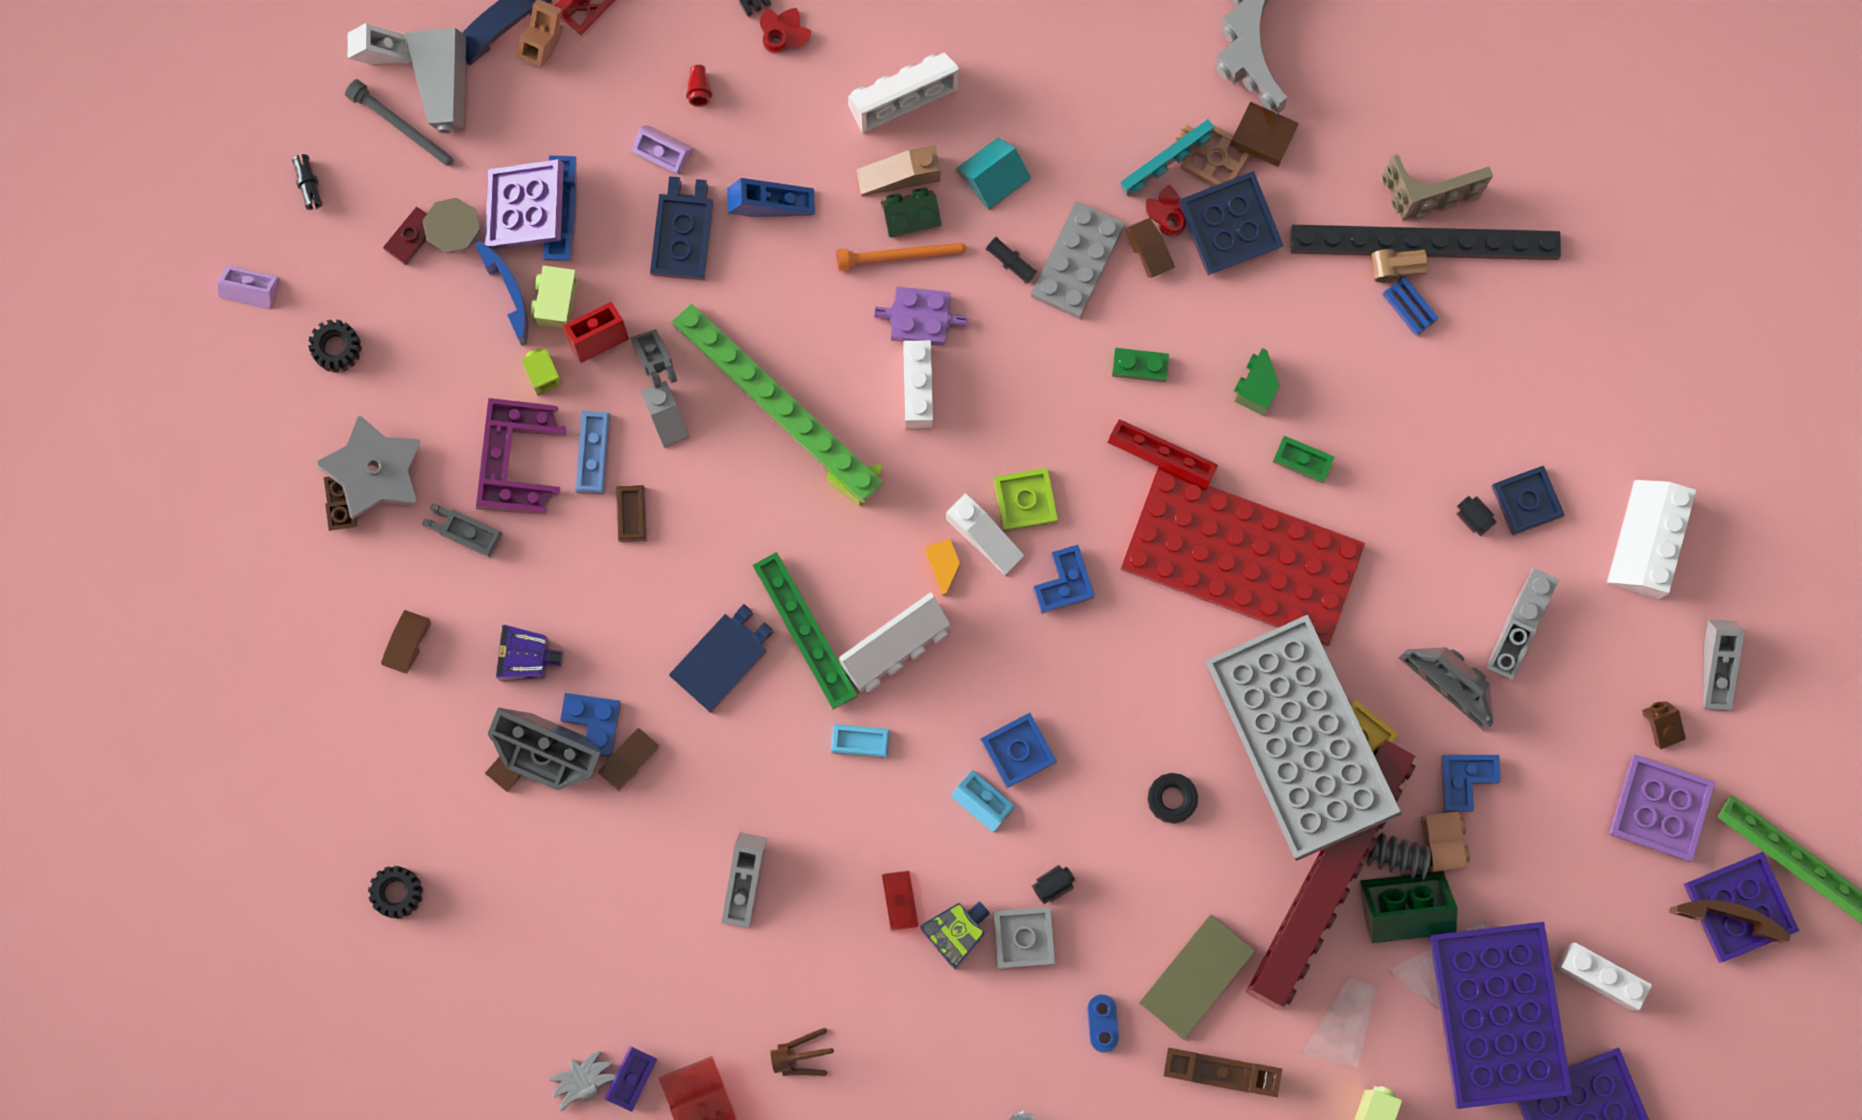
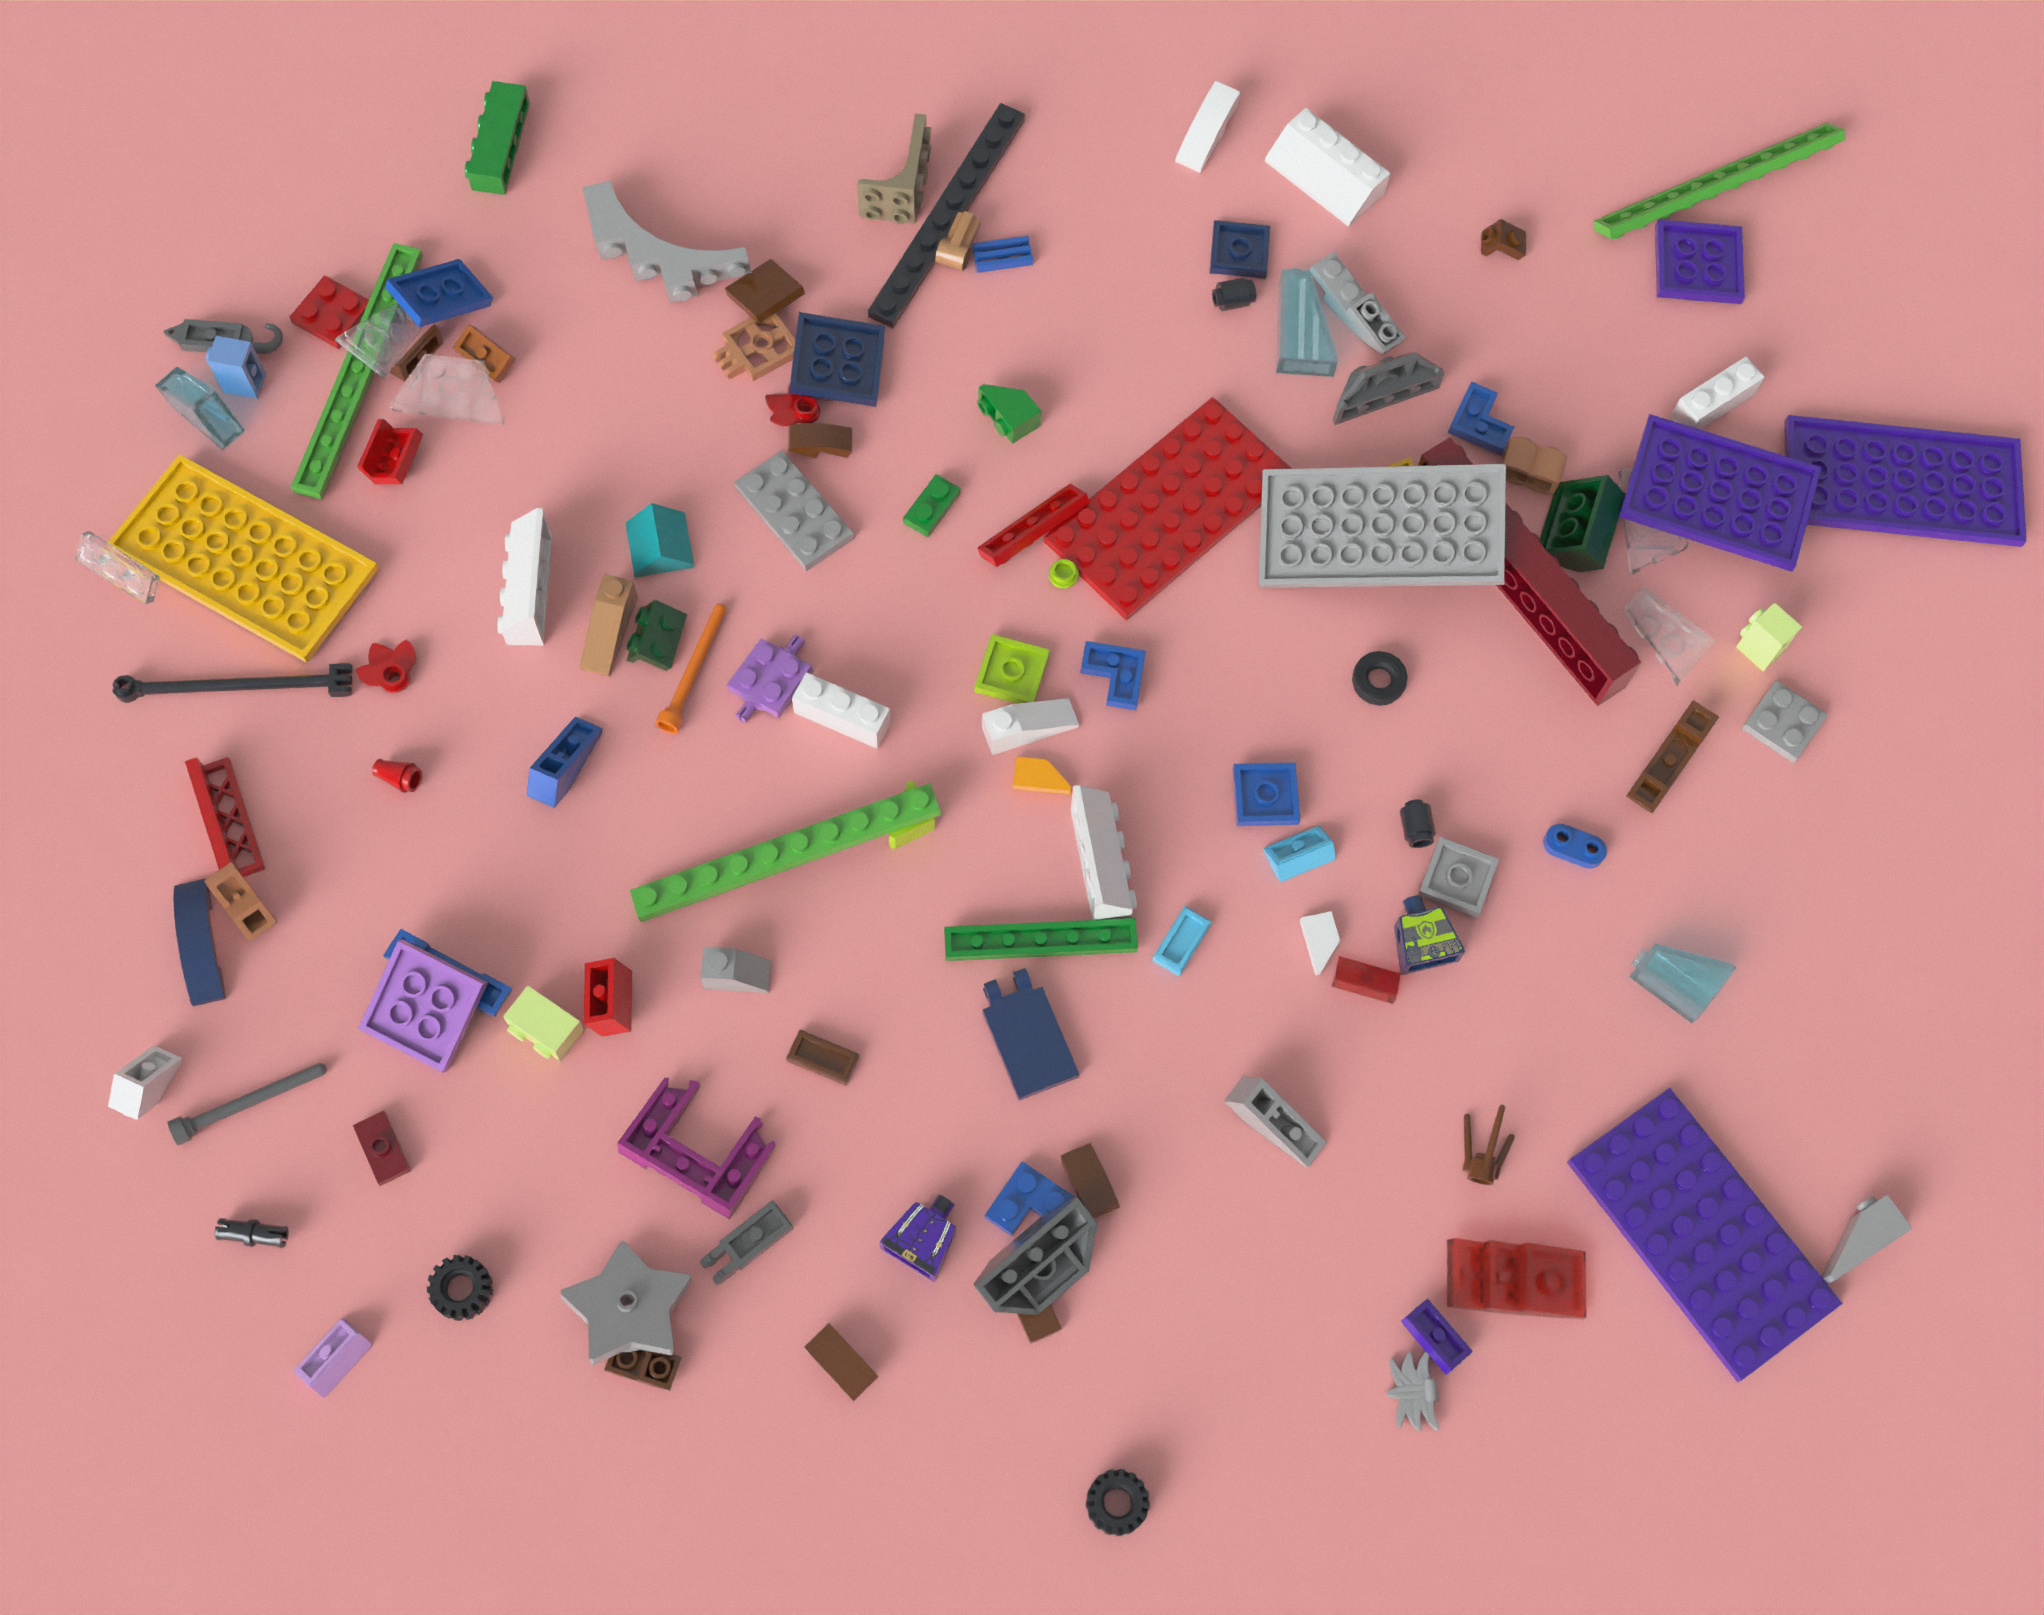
camera: 65 degrees left, 10 degrees down
(440, 75) = (215, 1026): light grey slope -> none
(451, 225) = (398, 1096): dark tan piece -> none
(494, 264) = (464, 1071): blue slope -> none
(541, 371) = (616, 1076): lime brick -> none
(592, 452) = (734, 1066): medium blue tile -> none
(653, 356) = (670, 949): dark grey hinge -> none
(661, 149) = (442, 844): lavender slope -> none
(682, 232) = (546, 863): dark blue tile -> none
(916, 849) = (1320, 937): none -> white tile
(1011, 260) = (760, 567): black pin -> none
(1132, 499) = (1063, 574): none -> lime plate
(1176, 152) = (743, 391): teal plate -> none
(1197, 977) = (1565, 740): olive tile -> none
(1303, 459) = (1103, 409): green plate -> none
(1400, 855) = (1536, 501): dark grey piece -> none
(1469, 588) = (1302, 329): none -> clear light blue slope
(1635, 416) = (1208, 126): none -> white slope
(1661, 808) = (1581, 279): medium lavender plate -> none
(1721, 663) = (1469, 169): light grey slope -> none
(1763, 926) = (1727, 248): reddish brown slope -> none

